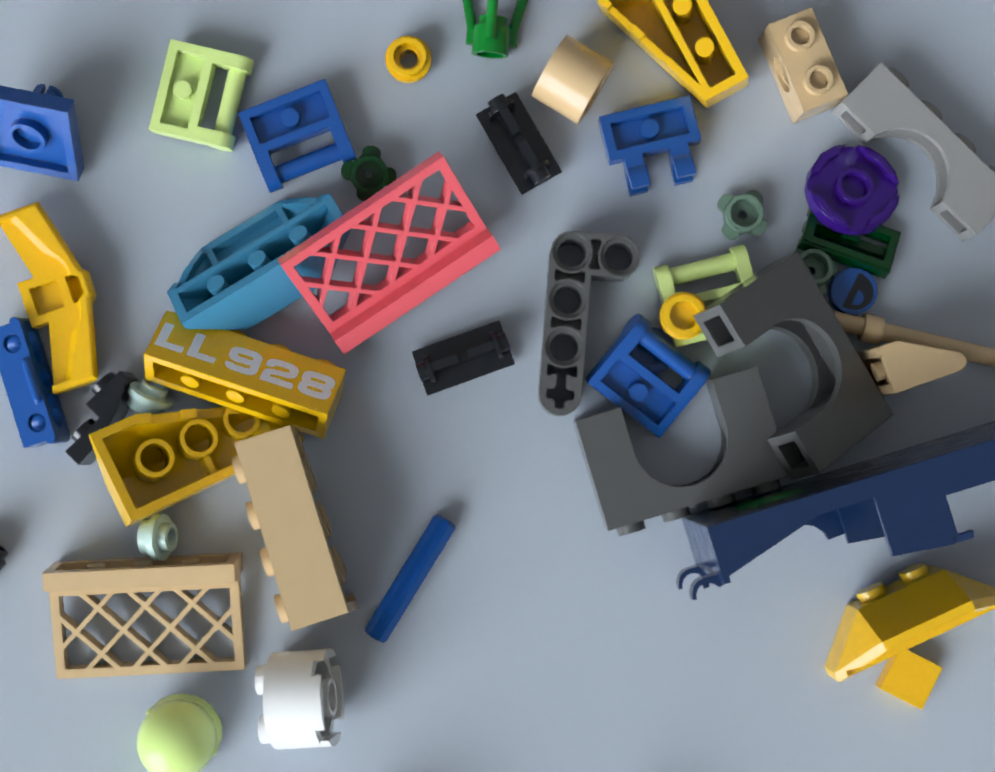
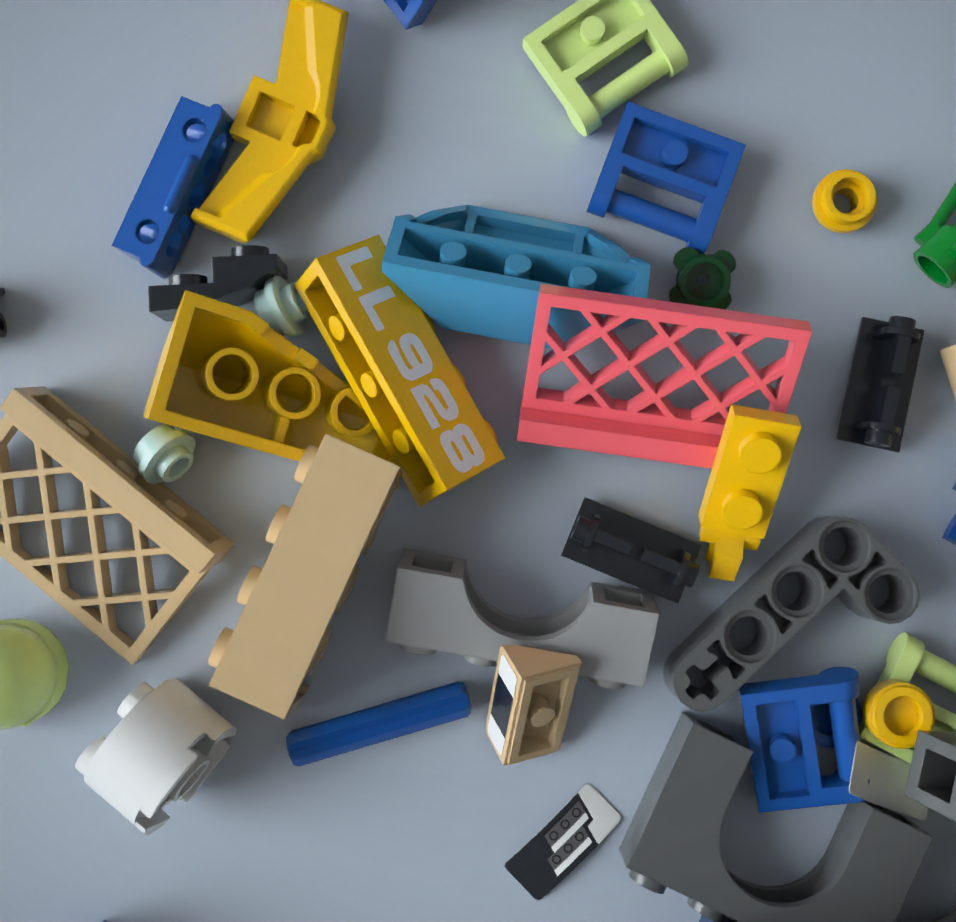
camera: 45 degrees right, 0 degrees up
(385, 482) = (442, 611): none -> light grey arch
(479, 489) = (530, 702): none -> tan slope
(488, 267) = (744, 484): none -> yellow hinge
(571, 552) = (563, 842): none -> sticker
(703, 355) = (887, 781): none -> white sticker

